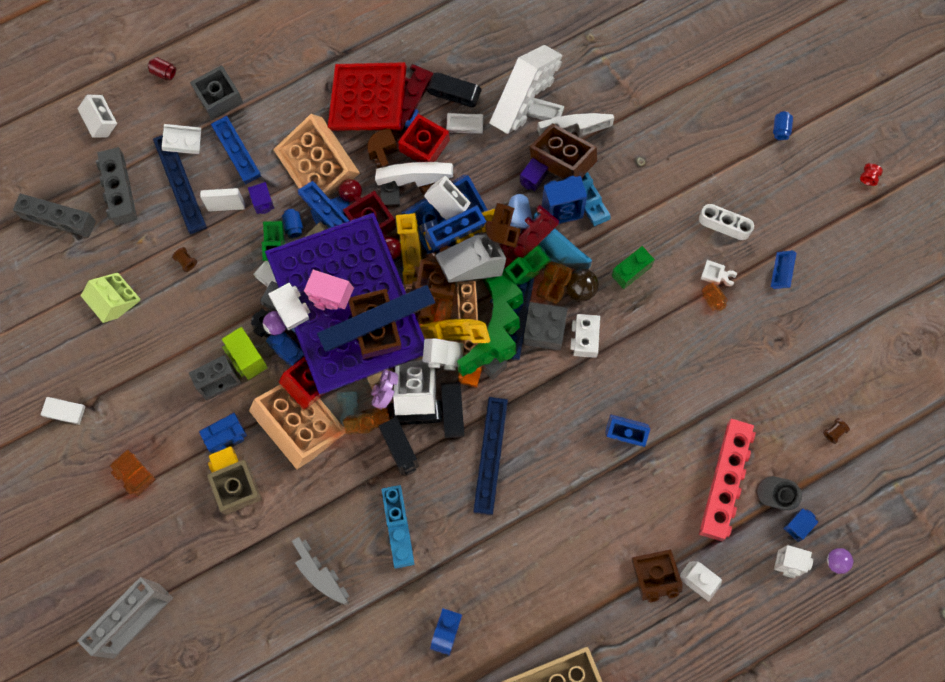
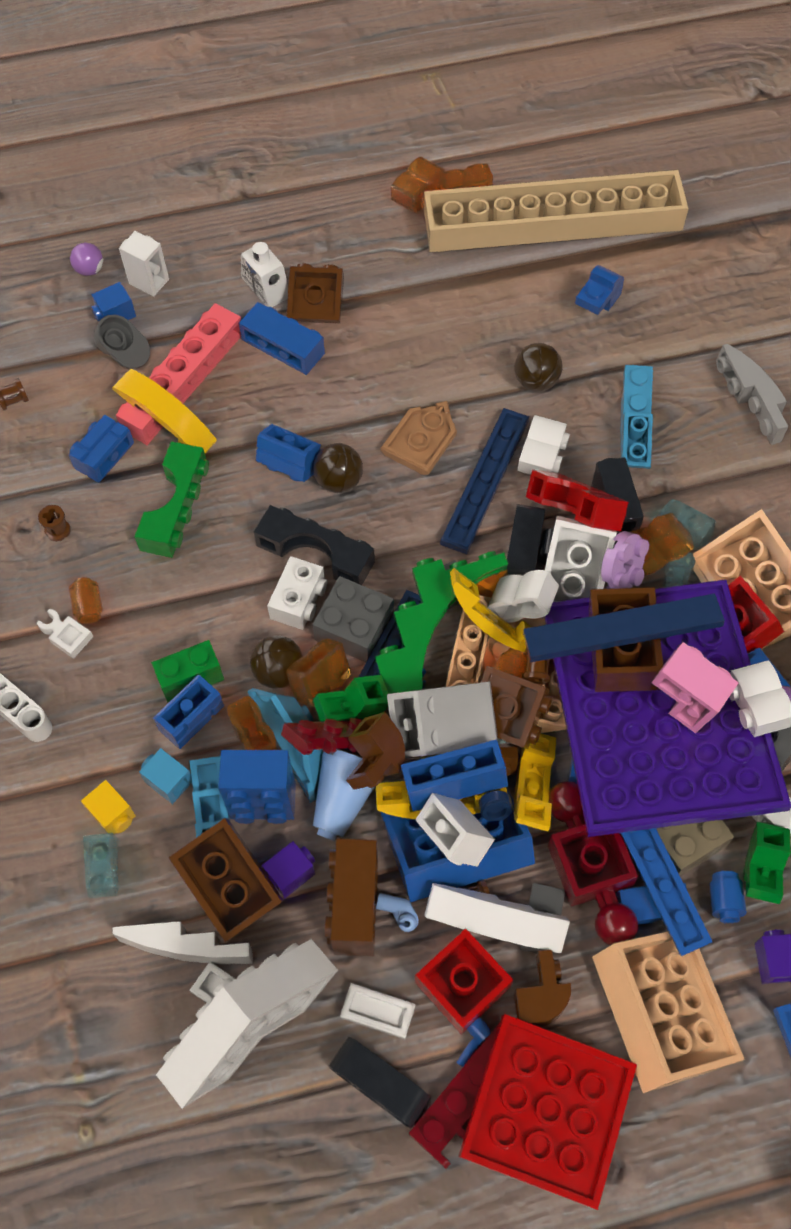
camera: 165 degrees left, 10 degrees down
(351, 452) = (697, 523): none -> clear light blue leg
(439, 445) = (589, 504): none -> red arch
(457, 486) = (543, 446): none -> white brick
(462, 169) = (401, 909): none -> light blue arm
(475, 548) = (538, 367): none -> dark brown piece
(493, 163) = (352, 897): none -> reddish brown brick
(542, 477) = (421, 437): none -> medium nougat tile
(582, 239) = (249, 725): none -> clear orange brick
(590, 428) = (338, 468): none -> dark brown piece
(610, 376) = (283, 532): none -> black arch
(621, 206) = (165, 775): none -> dark azure brick
(621, 241) = (189, 711): none -> blue brick
(636, 152) = (101, 864): none -> clear light blue leg
(644, 180) = (108, 808): none -> yellow brick
(667, 530) = (282, 338): none -> blue brick
(692, 404) = (162, 529): none -> green arch
(723, 436) = (165, 409): none -> yellow slope
(754, 404) = (100, 448): none -> blue brick
(760, 337) = (49, 521): none -> reddish brown bush

